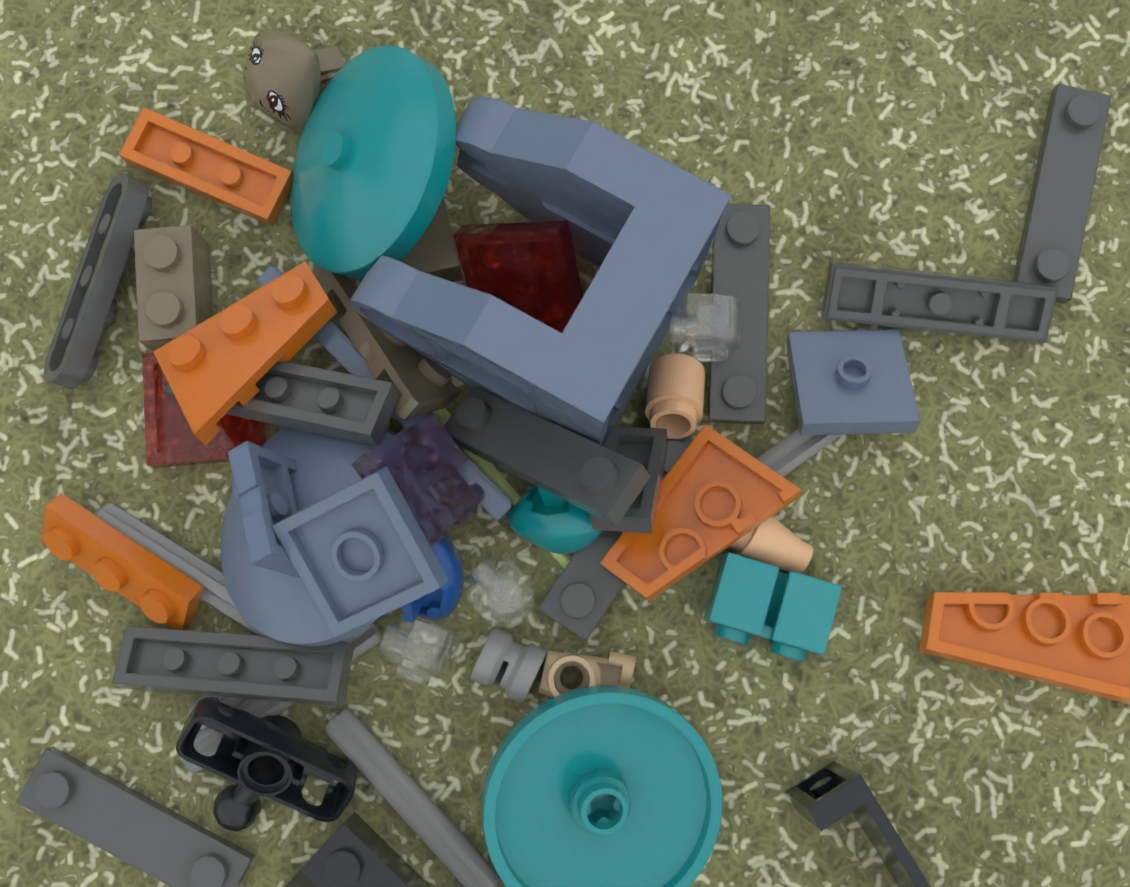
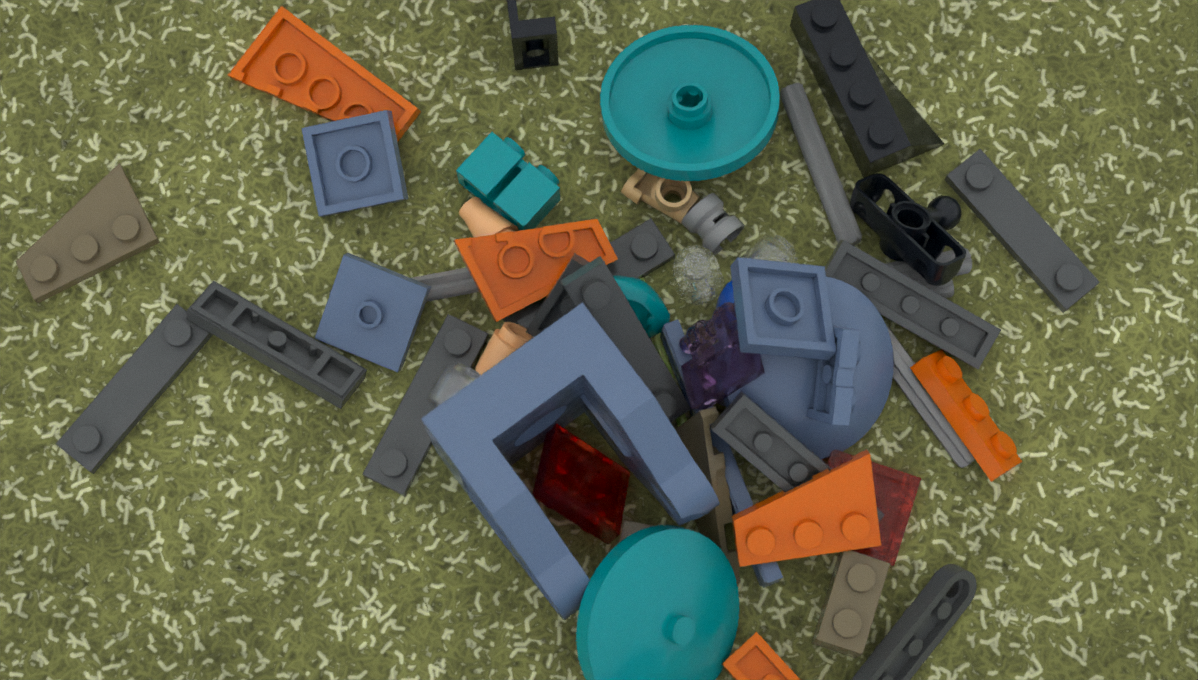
camera: 155 degrees left, 5 degrees down
(963, 546) = (355, 163): none -> sand blue plate

